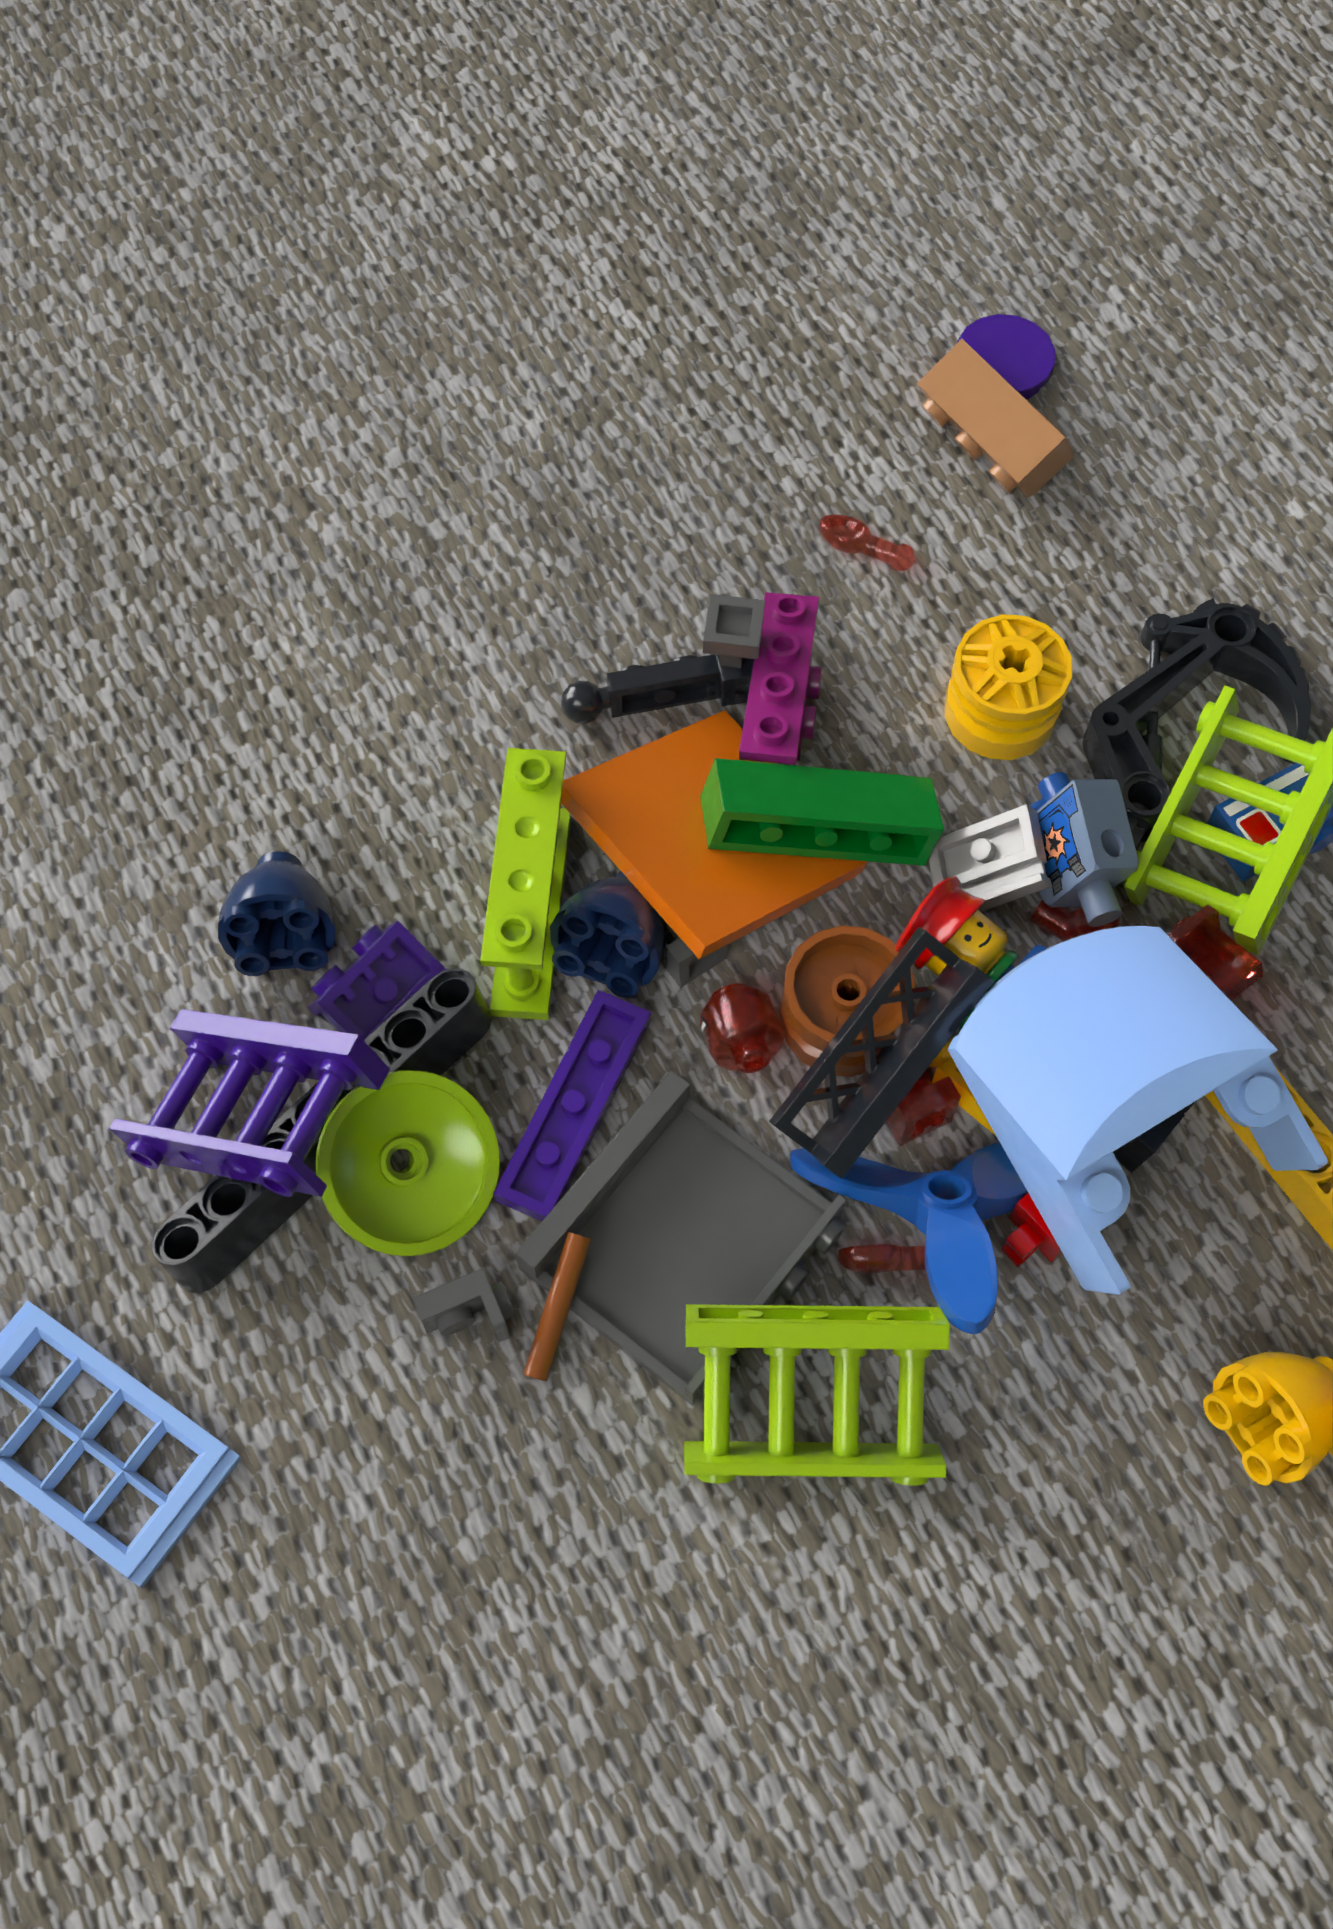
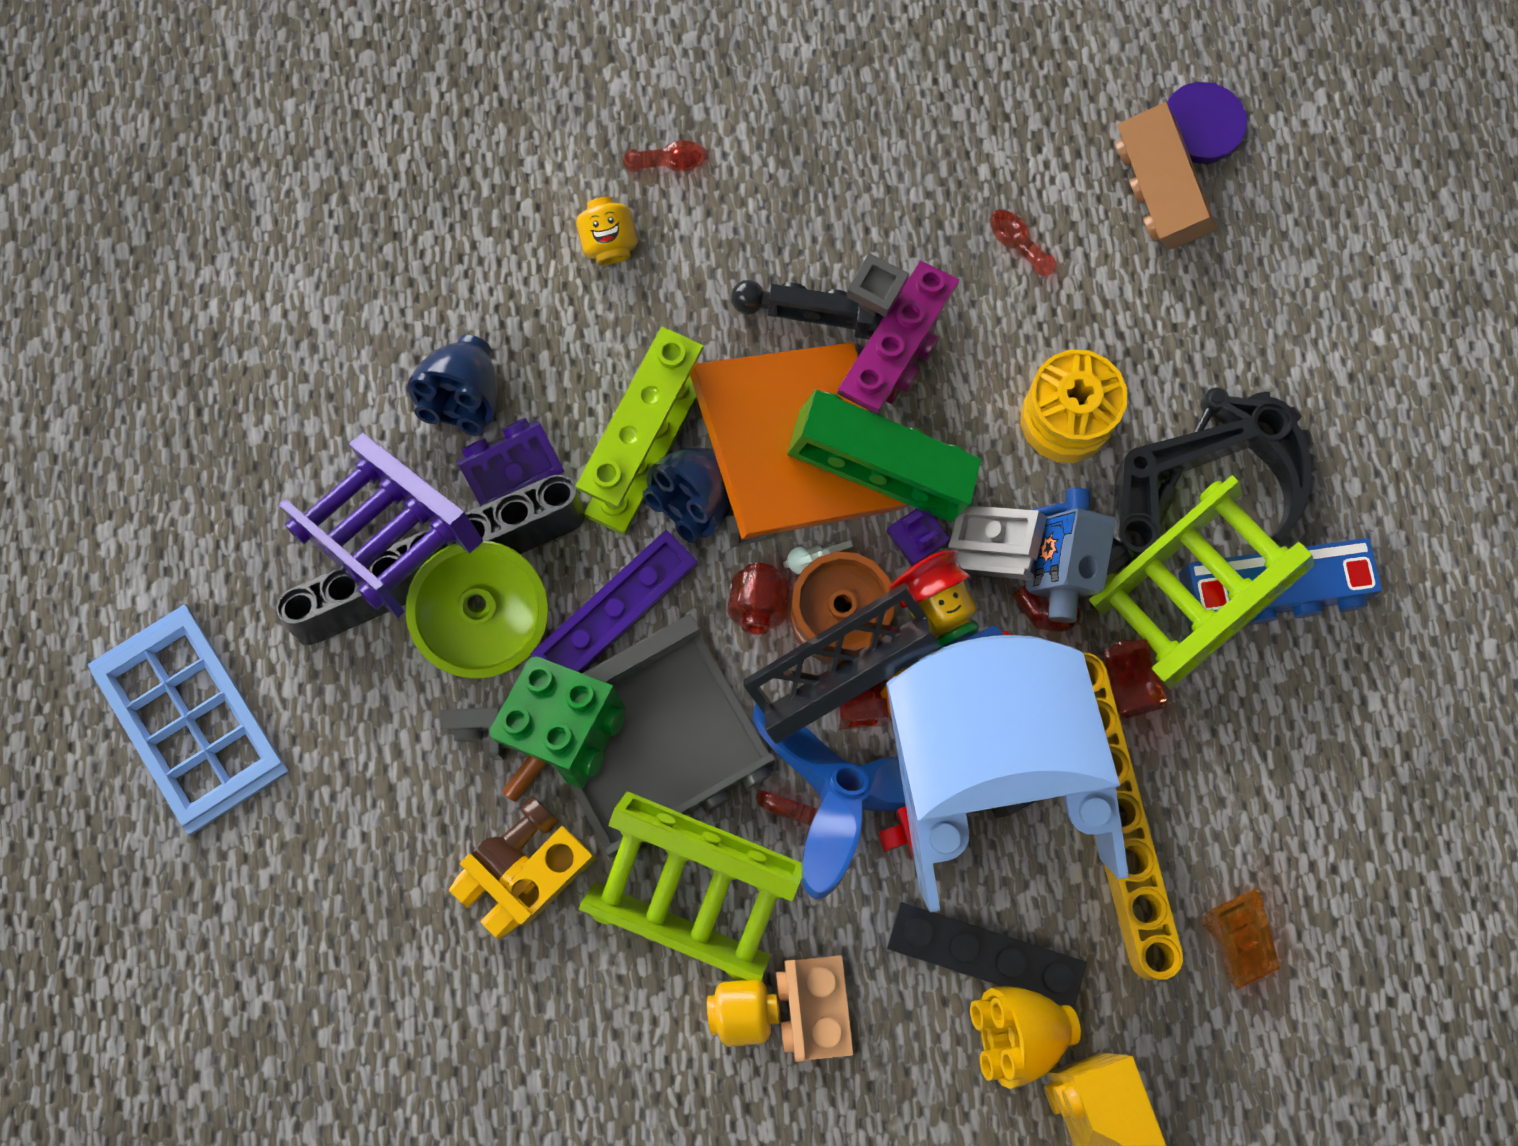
camera: 20 degrees right, 10 degrees up
(386, 686) = (606, 231): none -> yellow head
(431, 583) = (677, 156): none -> clear red piece
(565, 1251) = (560, 719): none -> green bracket
(585, 1474) = (516, 882): none -> yellow hips
(773, 962) = (801, 558): none -> light aqua piece
(893, 894) = (917, 536): none -> dark purple tile
(939, 1521) = (742, 1012): none -> yellow head
(1022, 1483) = (816, 1008): none -> light nougat bracket
(1187, 1338) = (985, 954): none -> black plate

